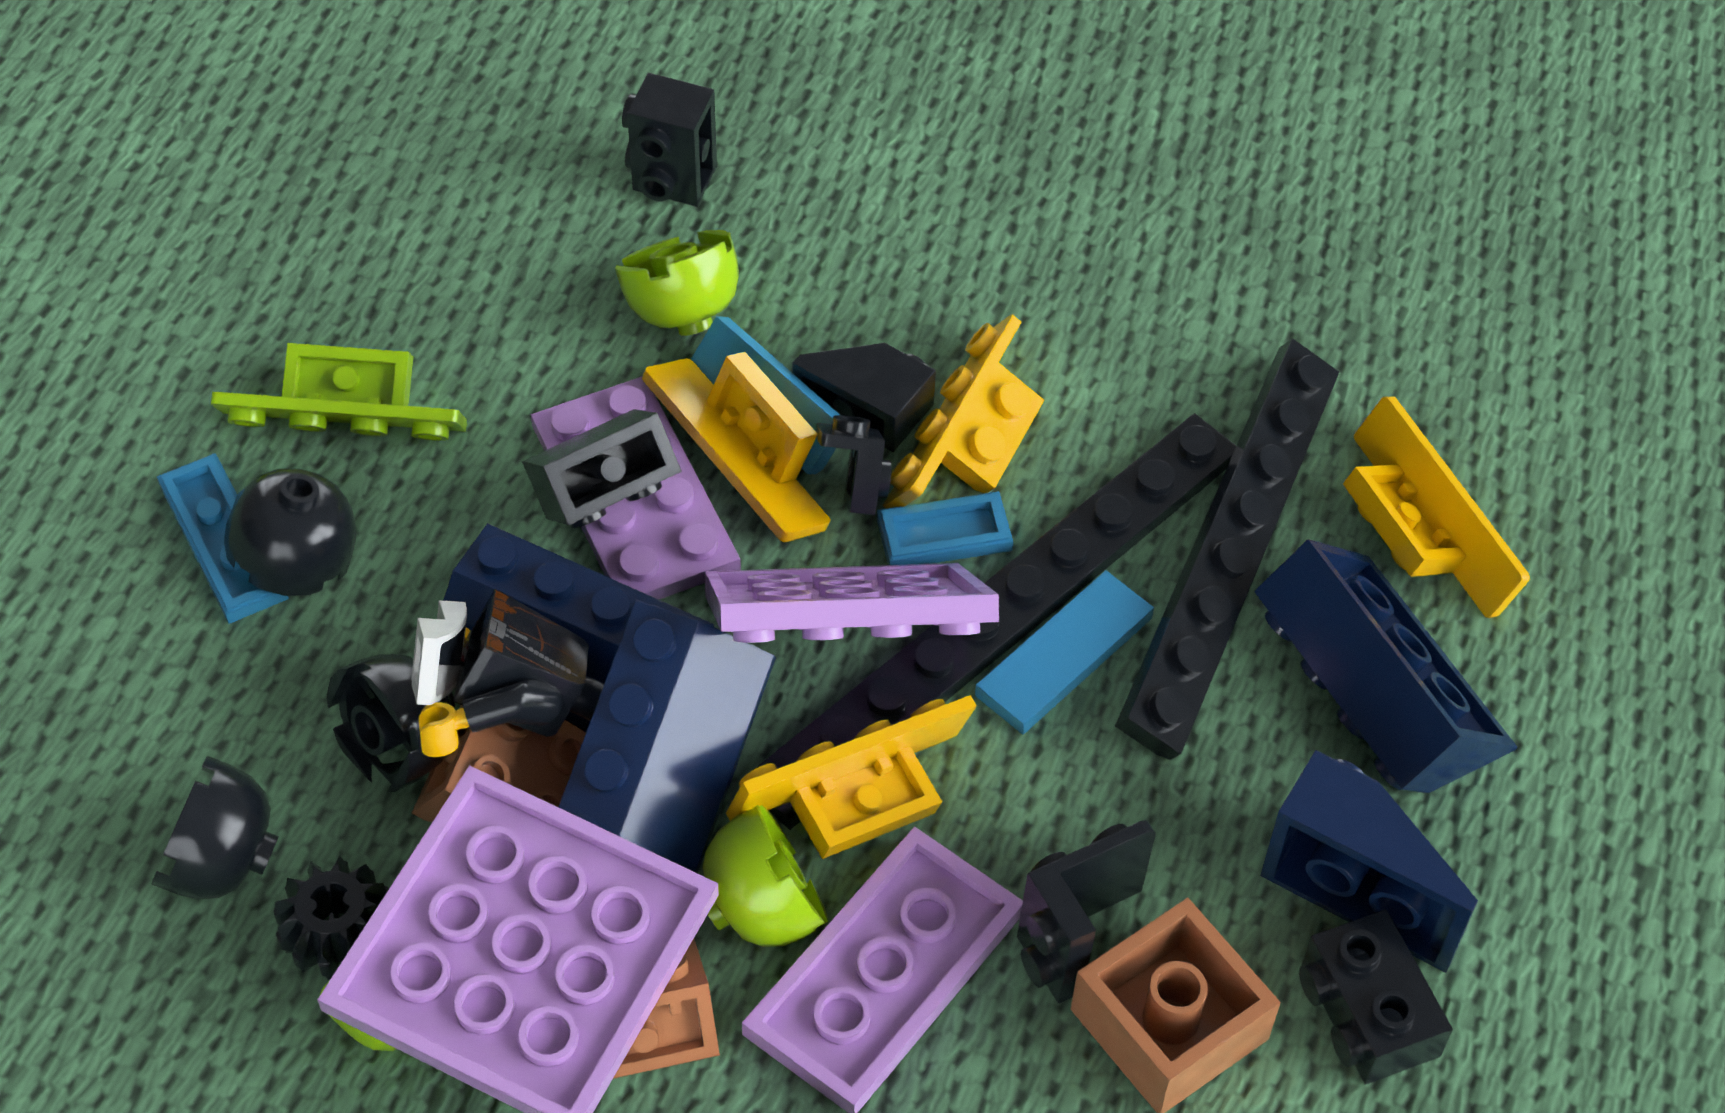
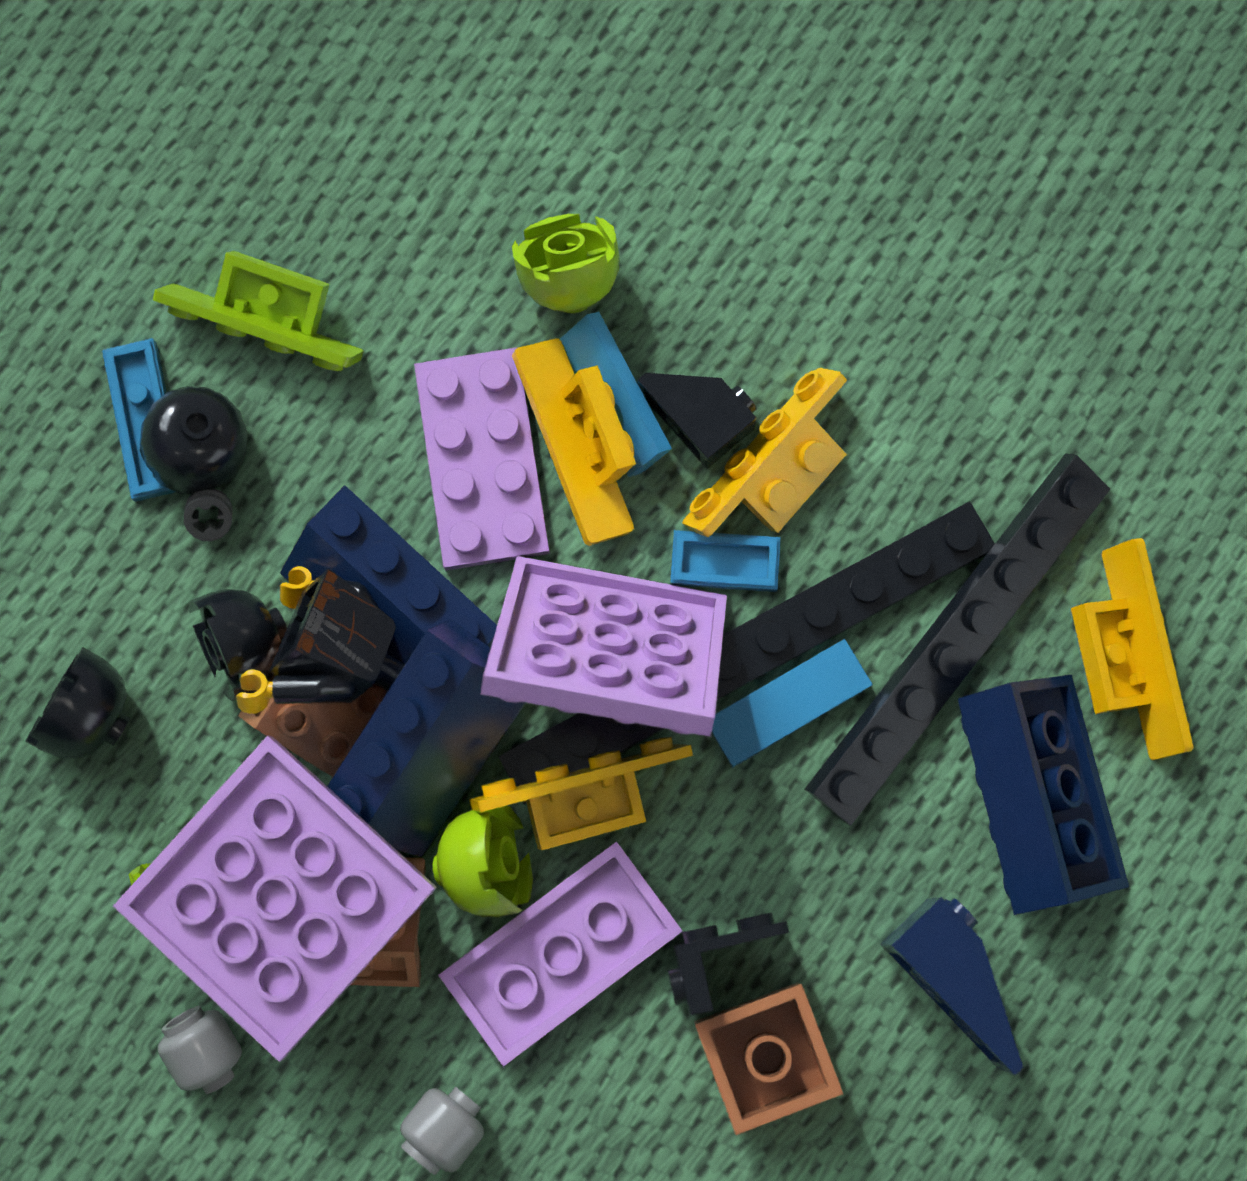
camera: 25 degrees right, 25 degrees up
(318, 589) = (211, 529): none -> dark grey bush
(322, 895) = (137, 799): black gear -> none
(438, 652) = (270, 619): white slope -> none
(602, 467) = (447, 456): black brick -> none
(671, 139) = (595, 113): black brick -> none
(867, 471) = (669, 478): black bracket -> none
(1374, 997) = (928, 1086): black brick -> none

